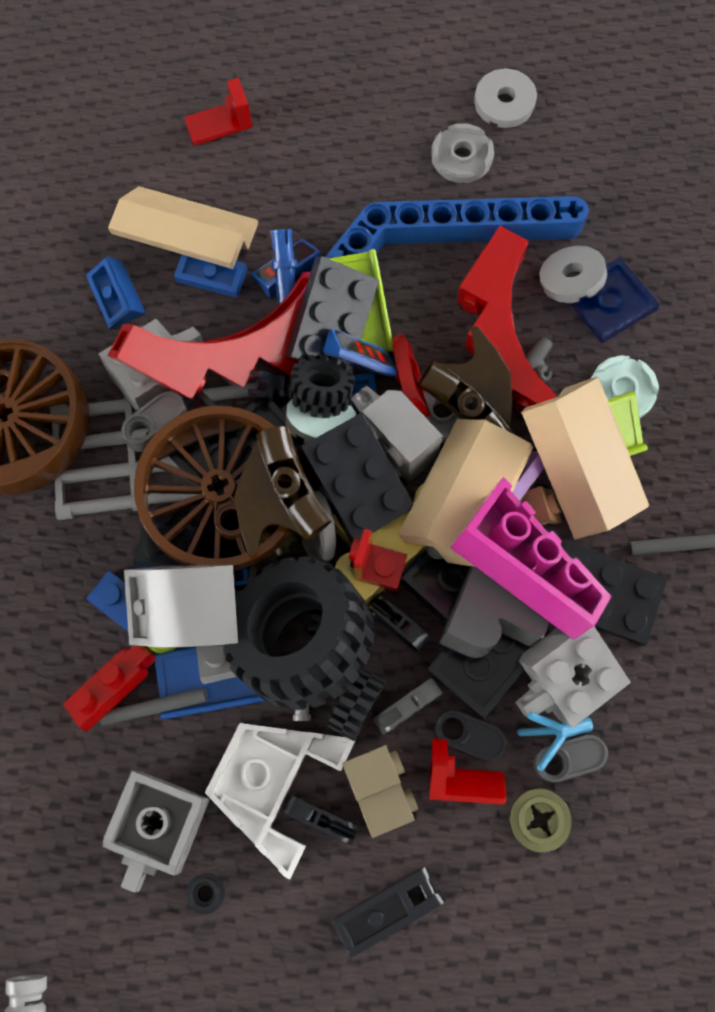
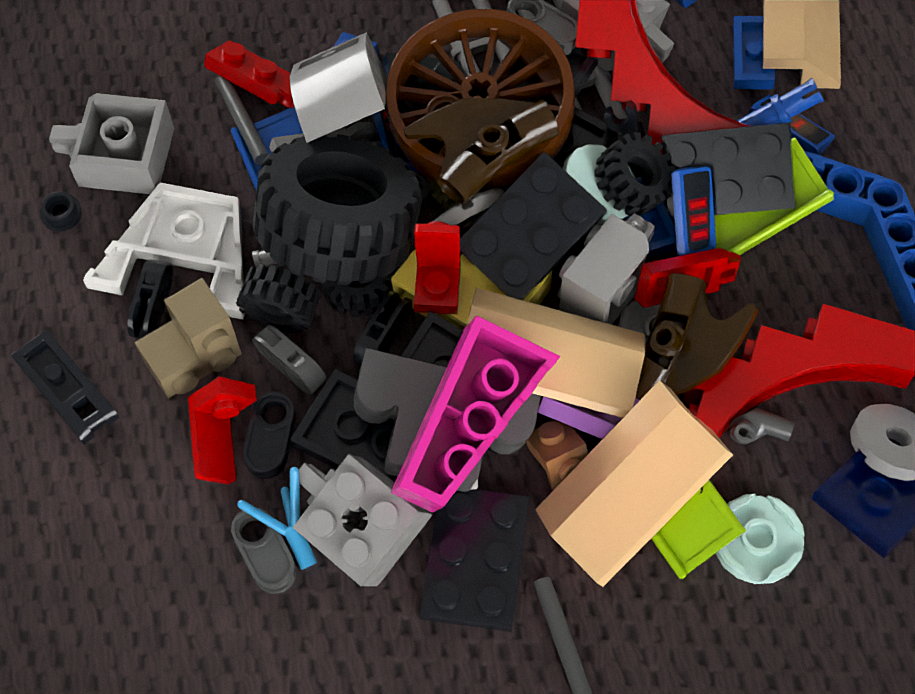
camera: 75 degrees right, 10 degrees down
(558, 824) = (190, 508): olive gear -> none

